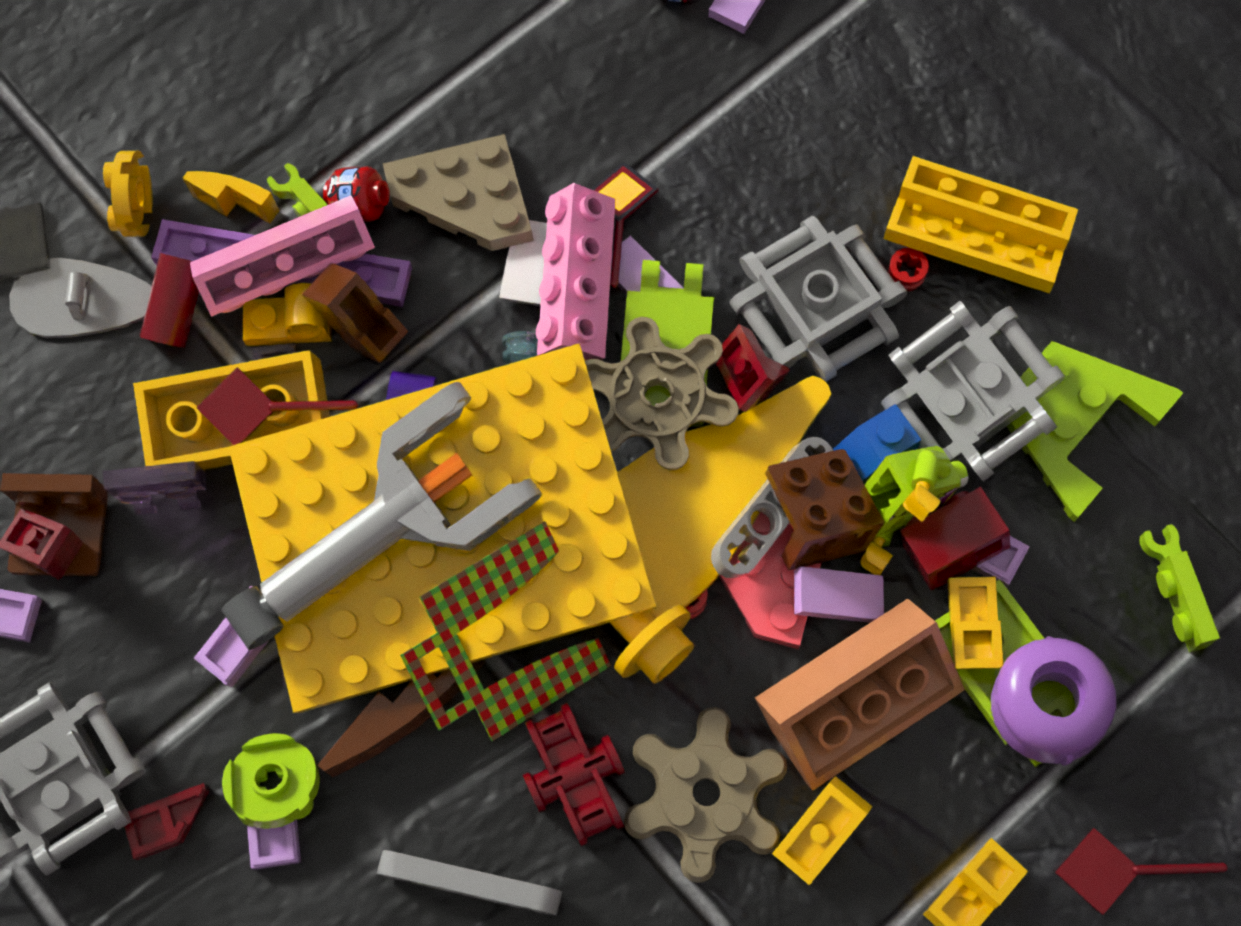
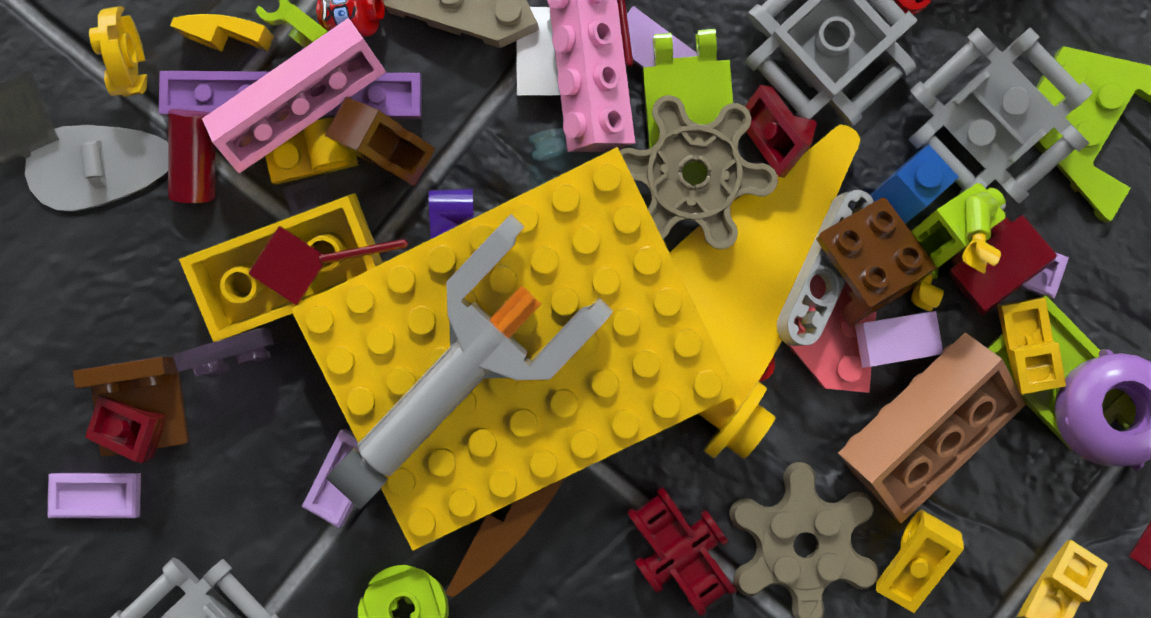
camera: 15 degrees left, 15 degrees up
(470, 597) = (560, 428): piece -> none

